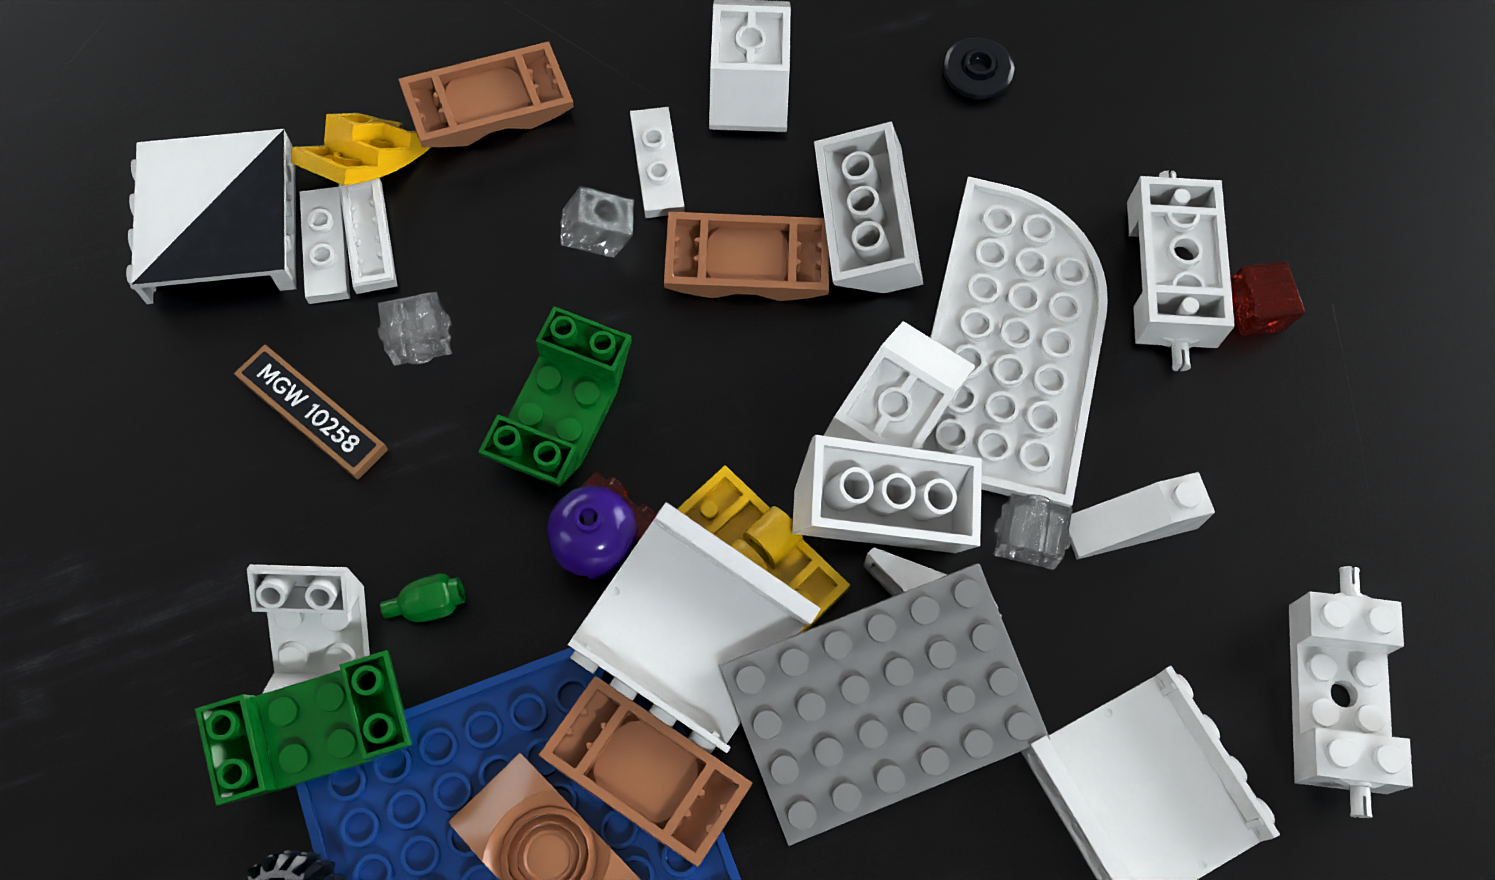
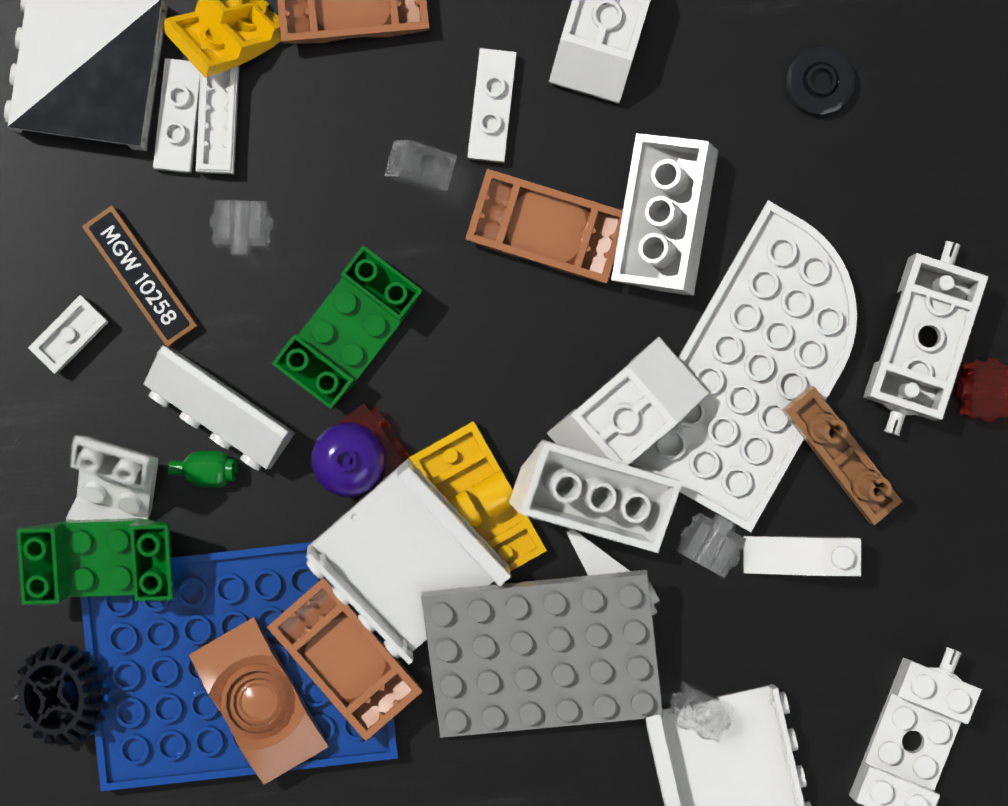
camera: 25 degrees right, 20 degrees up
(235, 490) = (68, 334): none -> white plate
(426, 519) = (217, 408): none -> white slope
(1076, 717) = (685, 707): none -> clear head
(1141, 398) = (842, 455): none -> medium nougat plate

